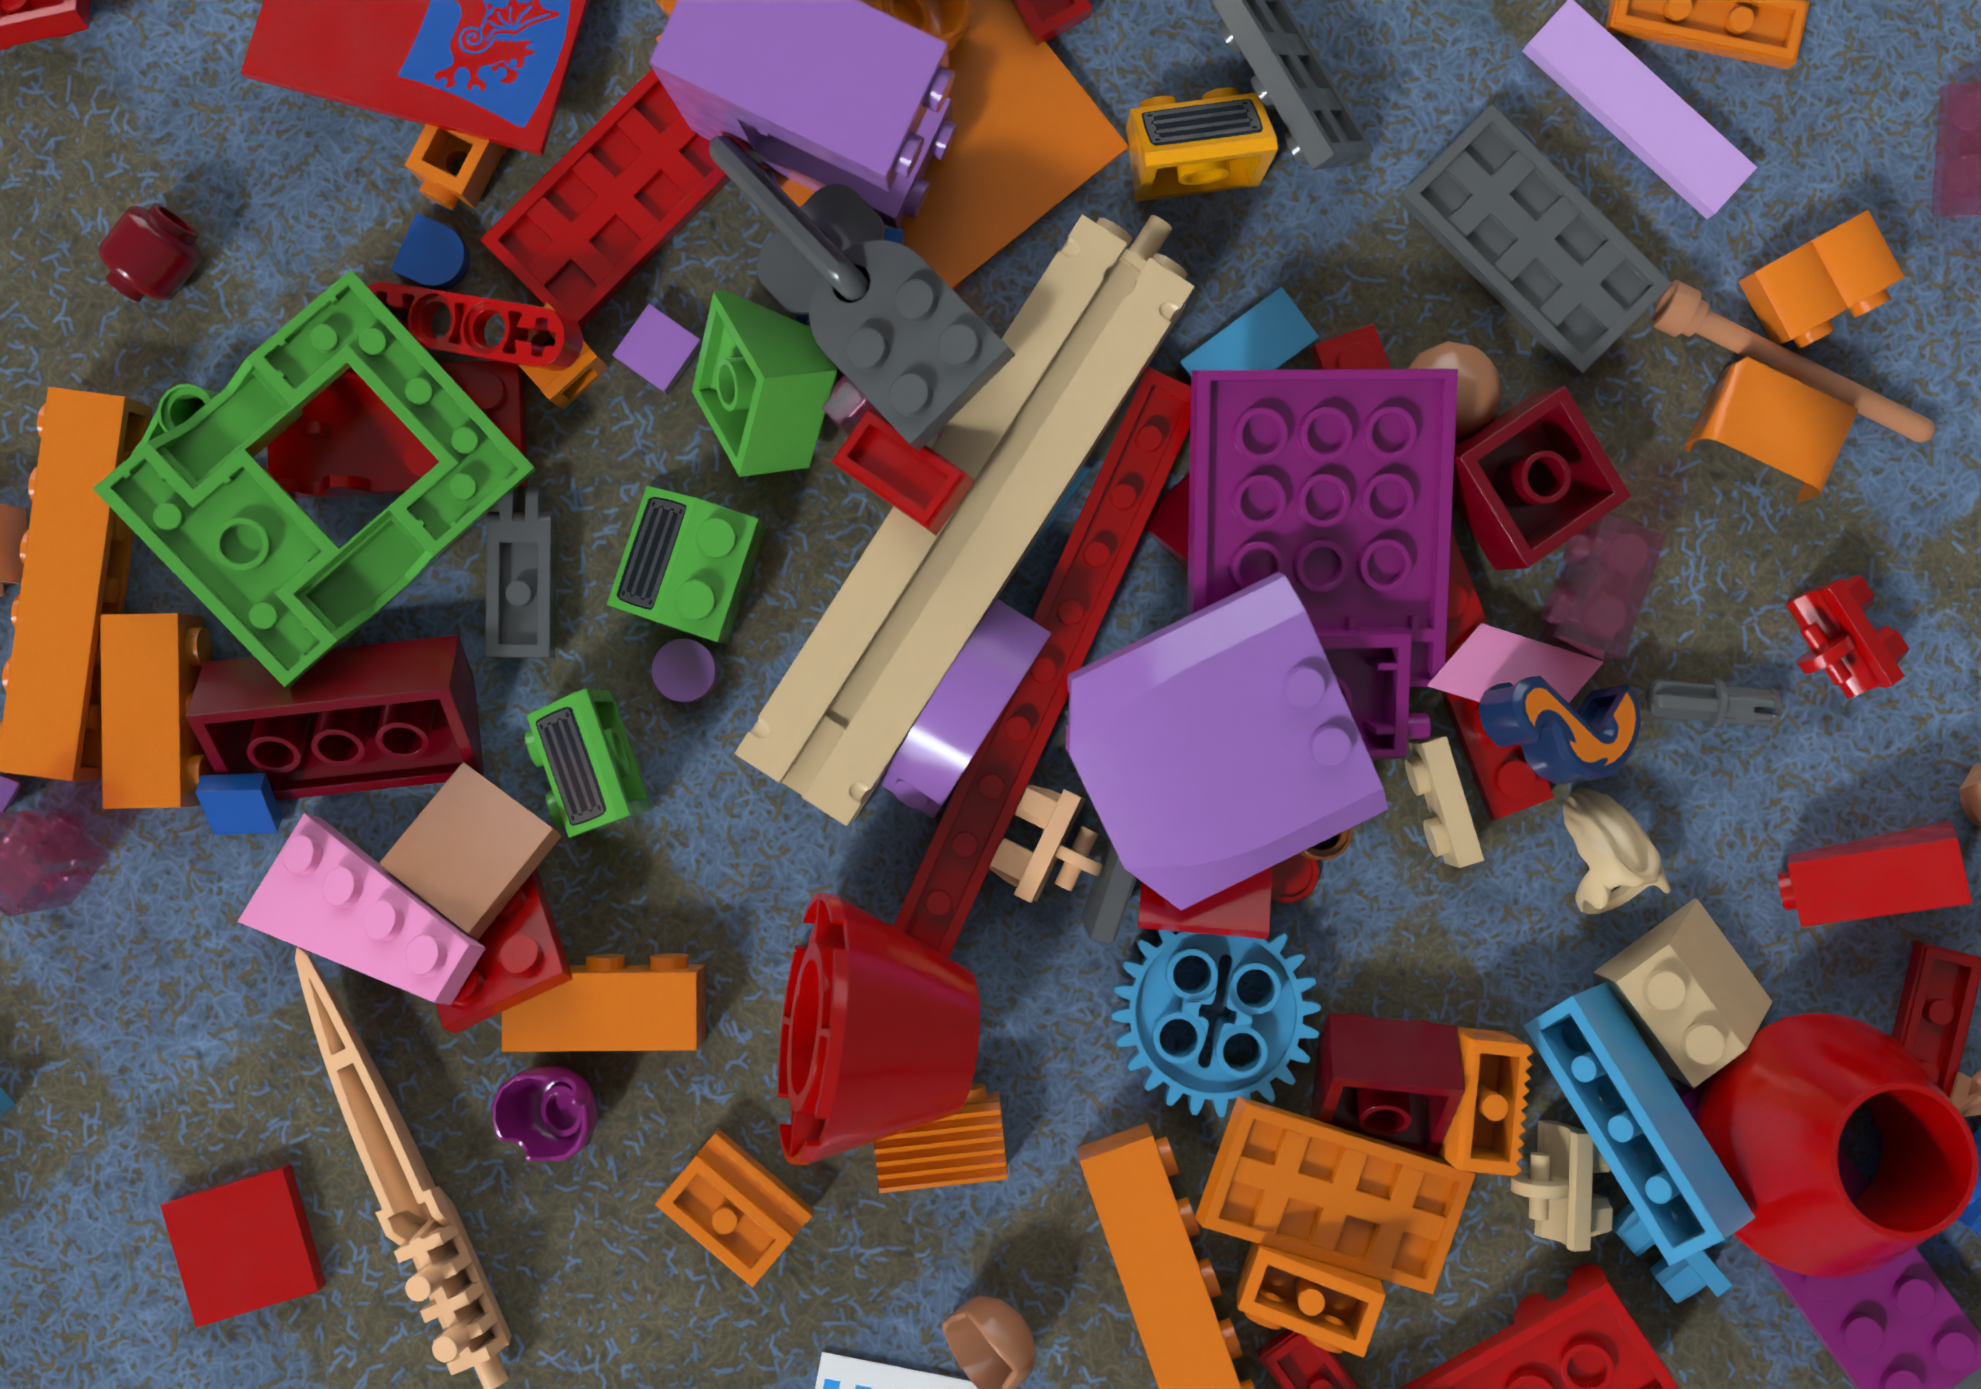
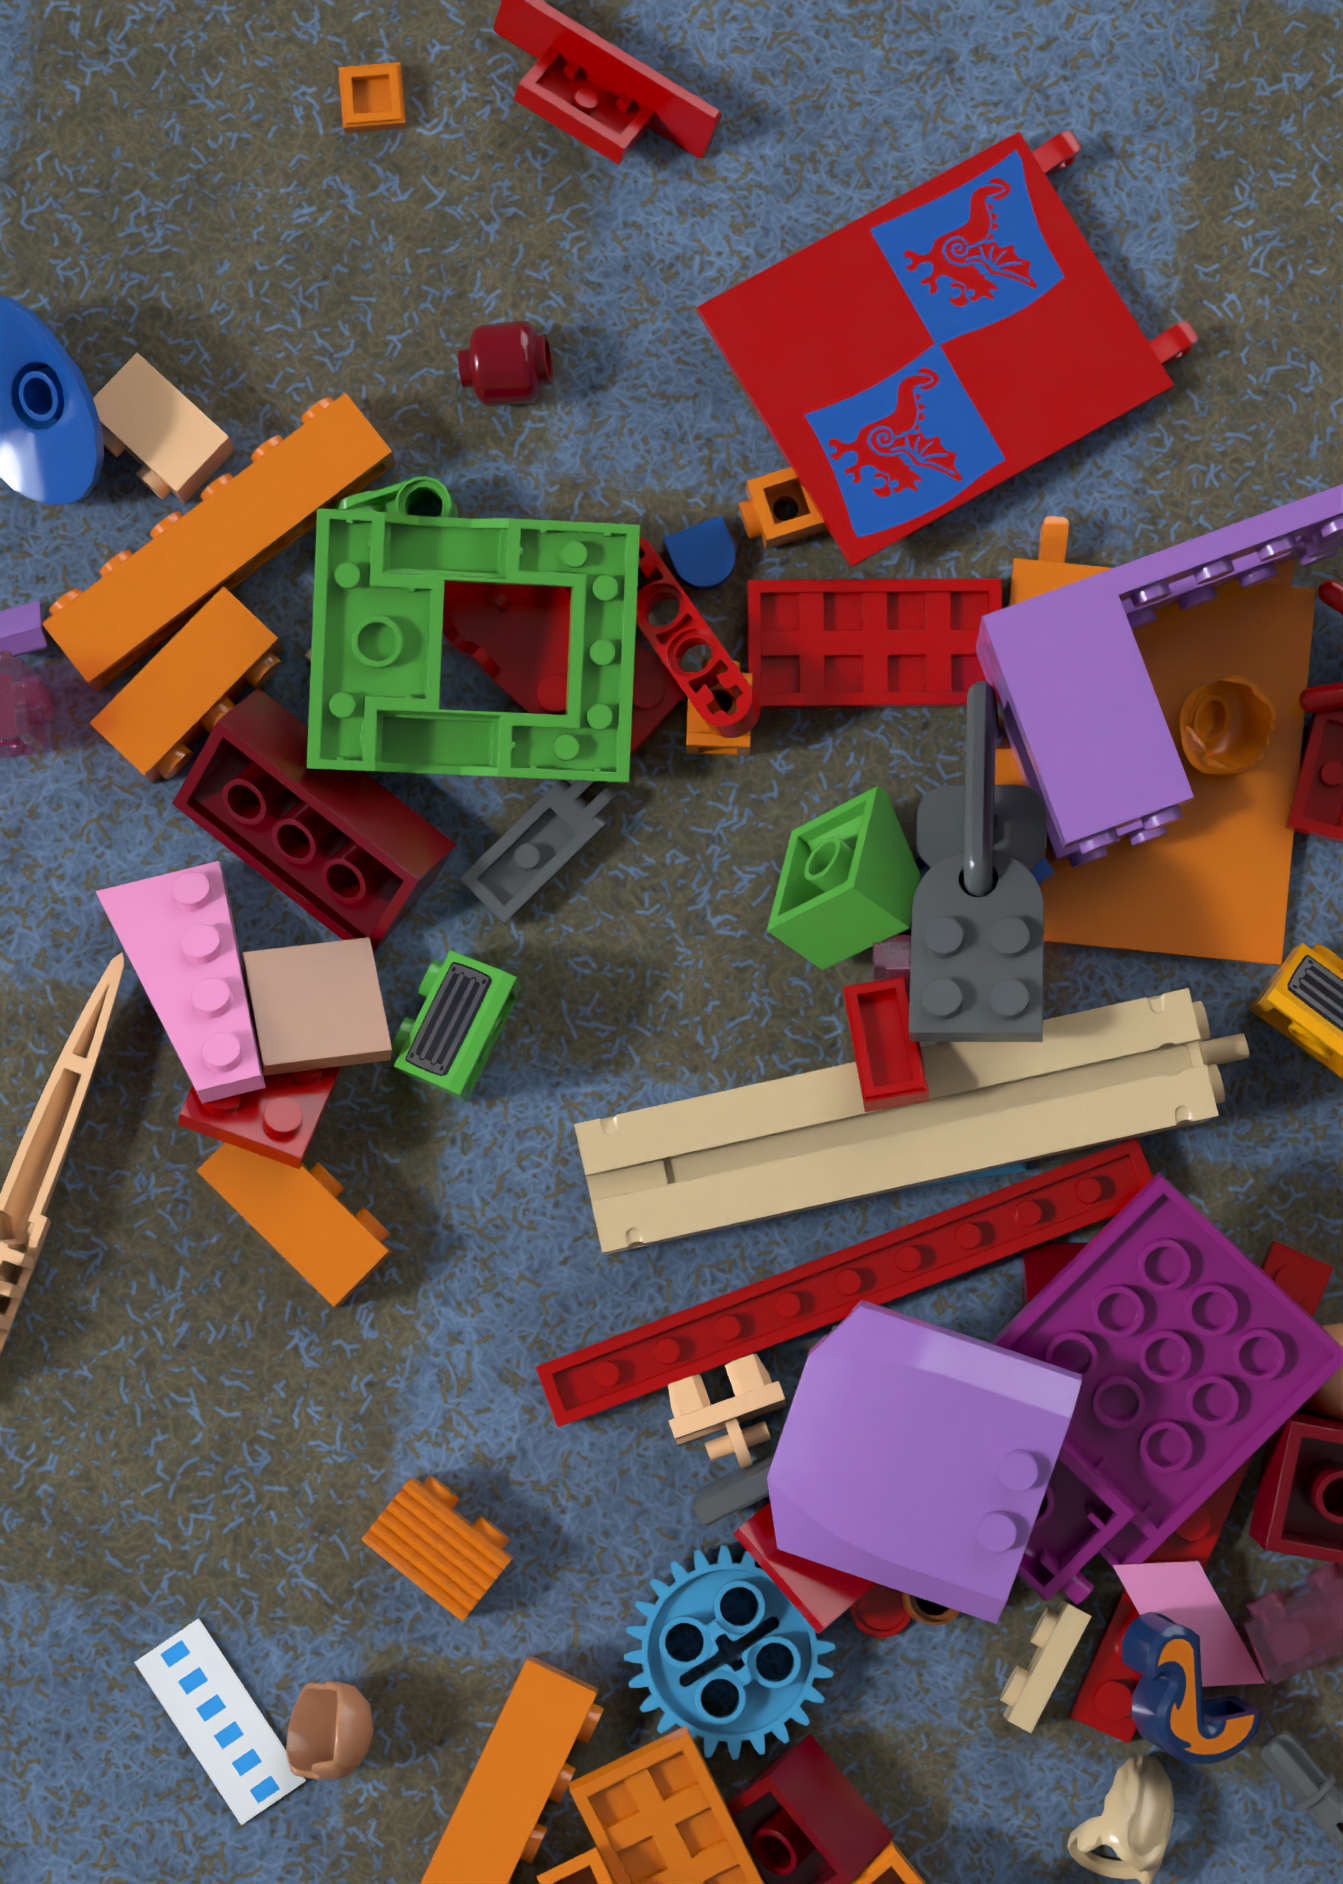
camera: 45 degrees right, 5 degrees down
(239, 803) = (181, 810): blue tile -> none
(546, 1112) = (179, 1245): magenta hair -> none
(658, 349) = (797, 778): medium lavender tile -> none
(685, 670) = (589, 1026): medium lavender tile -> none
(687, 564) = (666, 952): bright green slope -> none
(735, 1207) = (243, 1449): orange plate -> none
(870, 1034) = (472, 1413): red cone -> none
(964, 708) = (763, 1252): medium lavender arch -> none
(1258, 339) = (1234, 1196): dark azure tile -> none

